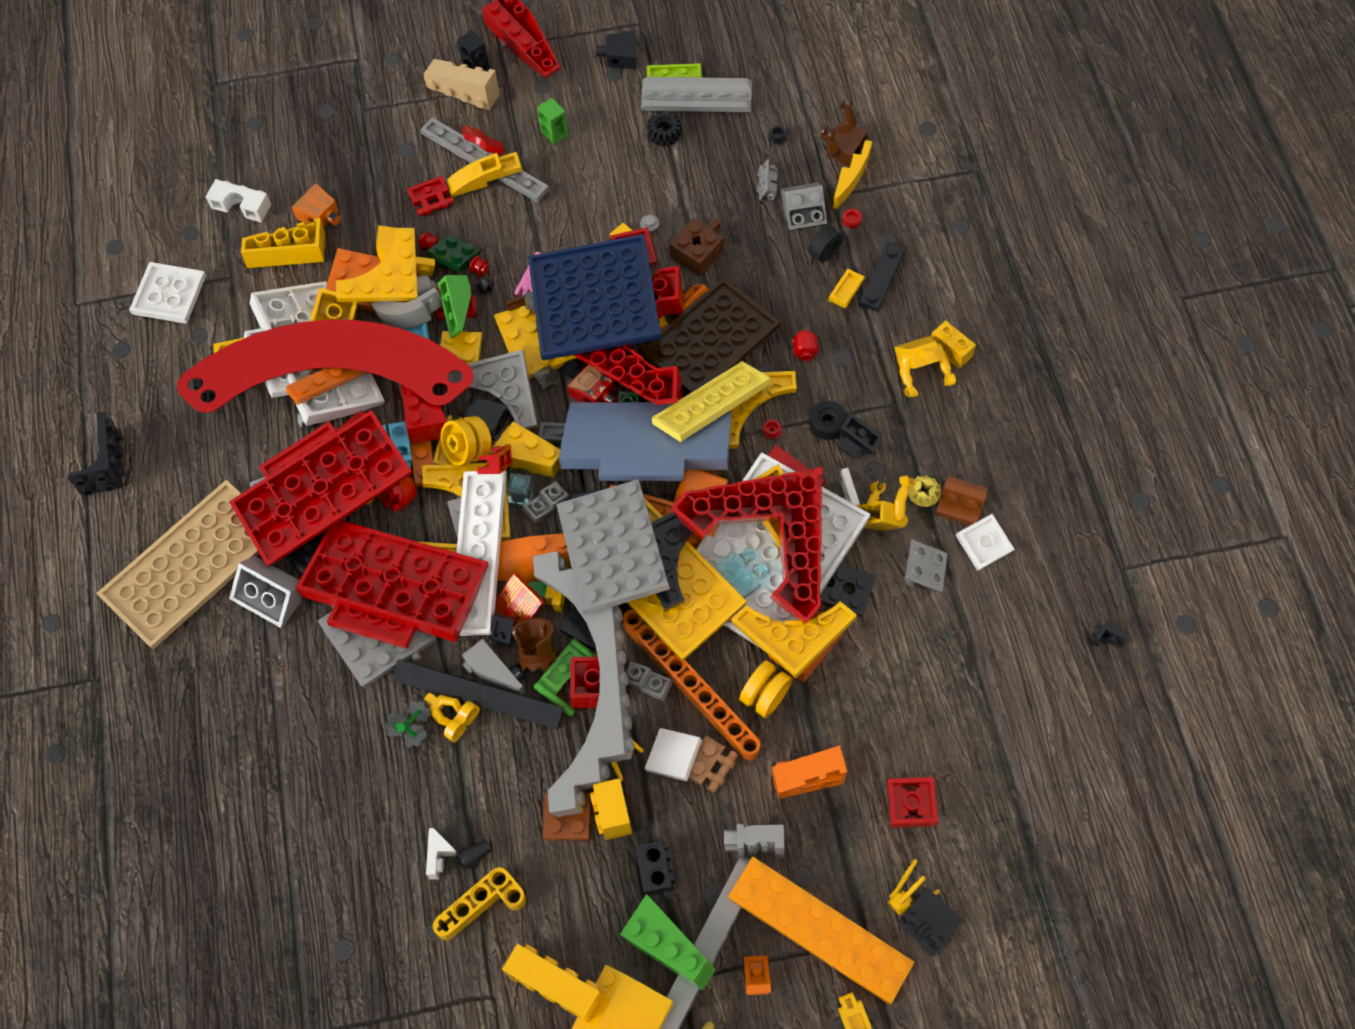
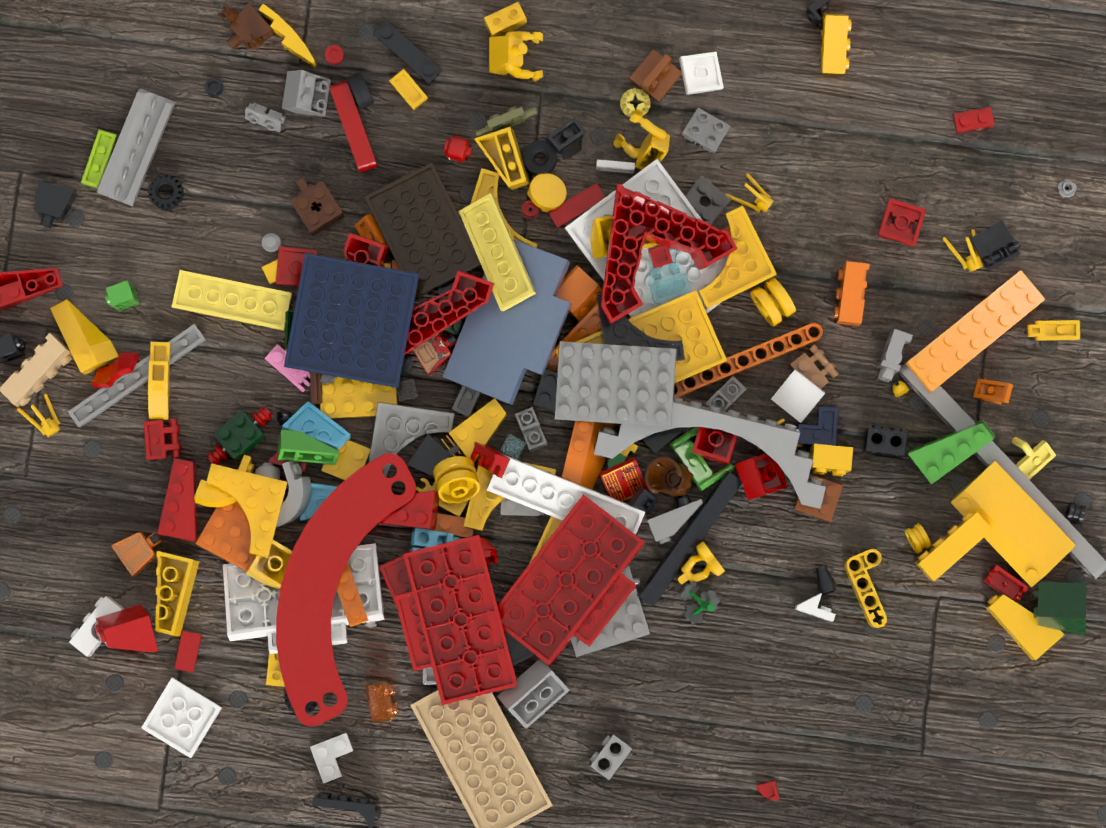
camera: 75 degrees left, 20 degrees up
(158, 425) = (326, 754): none -> white plate
(214, 692) = (615, 759): none -> light grey brick
(217, 872) = (768, 790): none -> red tile
(223, 453) = (381, 701): none -> clear orange slope
(234, 214) = (127, 630): none -> red slope
(234, 279) = (188, 651): none -> red tile
(359, 228) = (179, 509): none -> red wedge
(414, 109) = (48, 426): none -> yellow plant
(482, 311) = (318, 426): none -> medium azure wing
(501, 111) = (85, 341): none -> yellow wedge
(553, 942) = (918, 538): none -> yellow wheel
(565, 740) = (760, 476): none -> red slope
(581, 203) = (231, 300): none -> light yellow plate
(643, 797) = (824, 431): none -> dark blue plate
(721, 866) = (901, 389): none -> yellow hinge
(768, 552) = (660, 256): none -> red plate
(784, 254) = (353, 126): none -> red beam
(795, 436) = (547, 191): none -> yellow tile
(817, 384) = (505, 155): none -> yellow wedge
(850, 373) = (510, 119): none -> olive plate
(873, 648) = (763, 199): none -> yellow plant
(1035, 992) = (1062, 188): none -> light grey plate
(1066, 848) = (973, 120): none -> red plate
(1080, 662) = (835, 43): none -> yellow wedge

